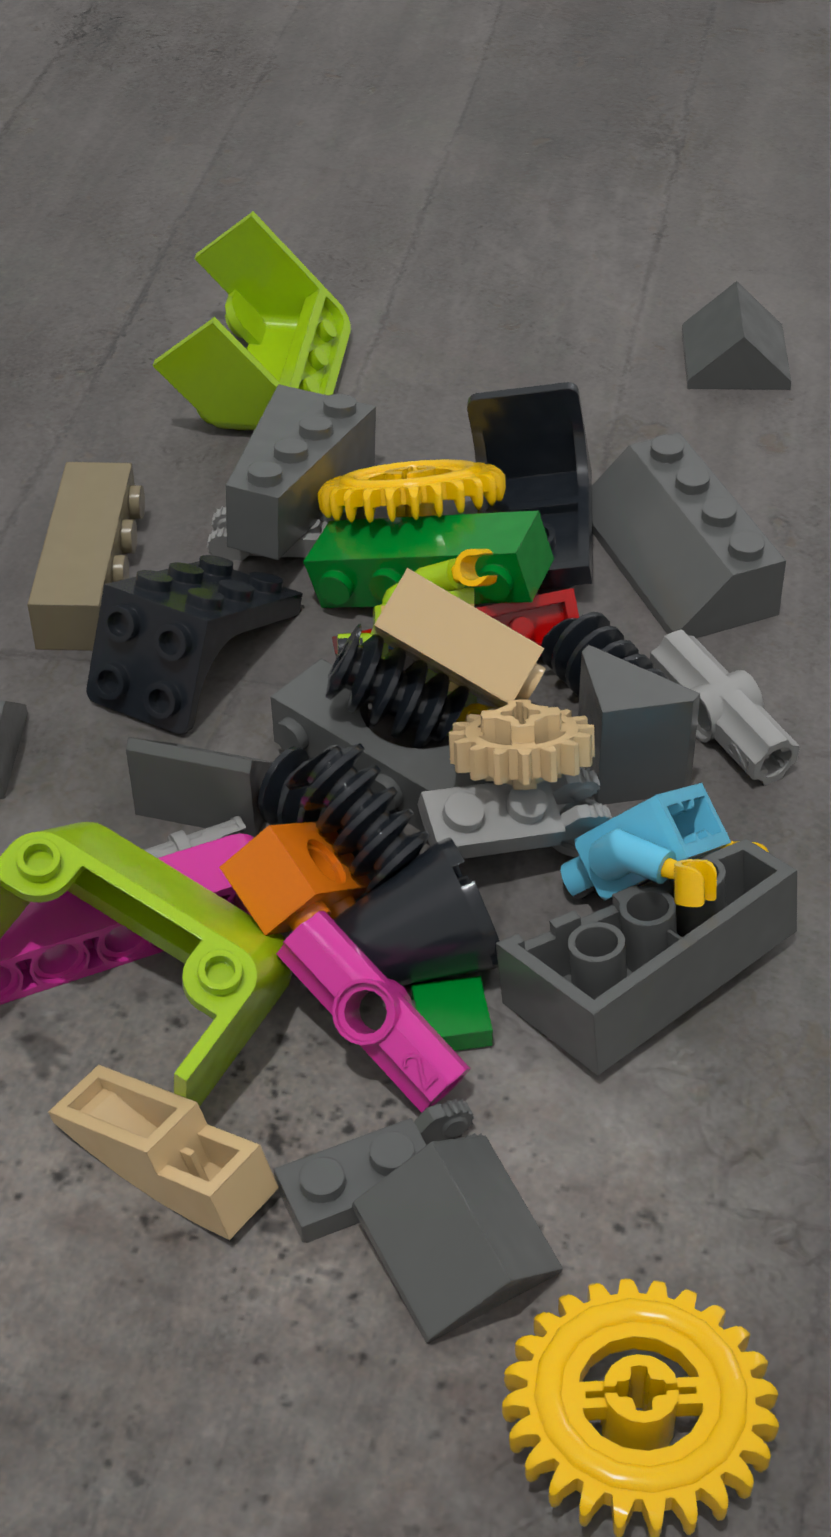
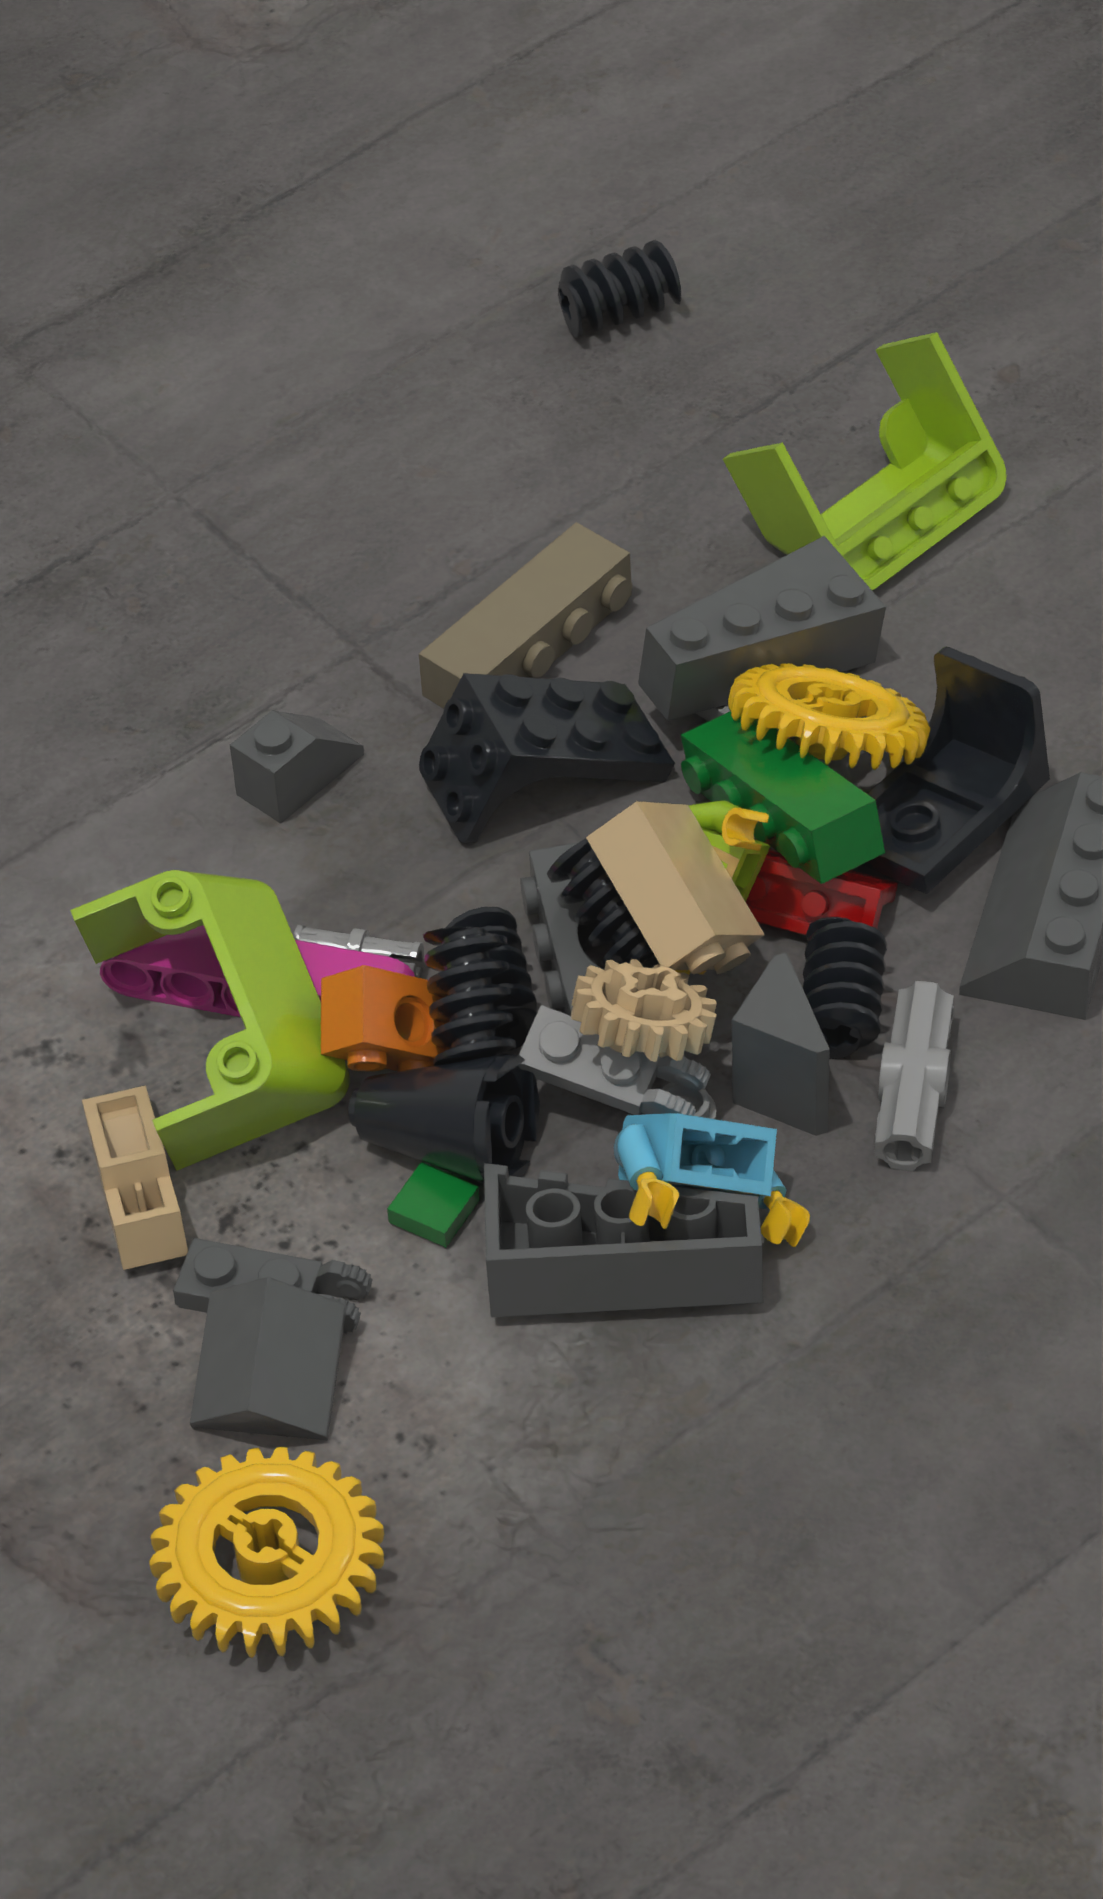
camera: 40 degrees right, 5 degrees up
(194, 784) = (418, 883): dark grey slope -> none
(405, 1044) = (352, 1161): dark pink piece -> none

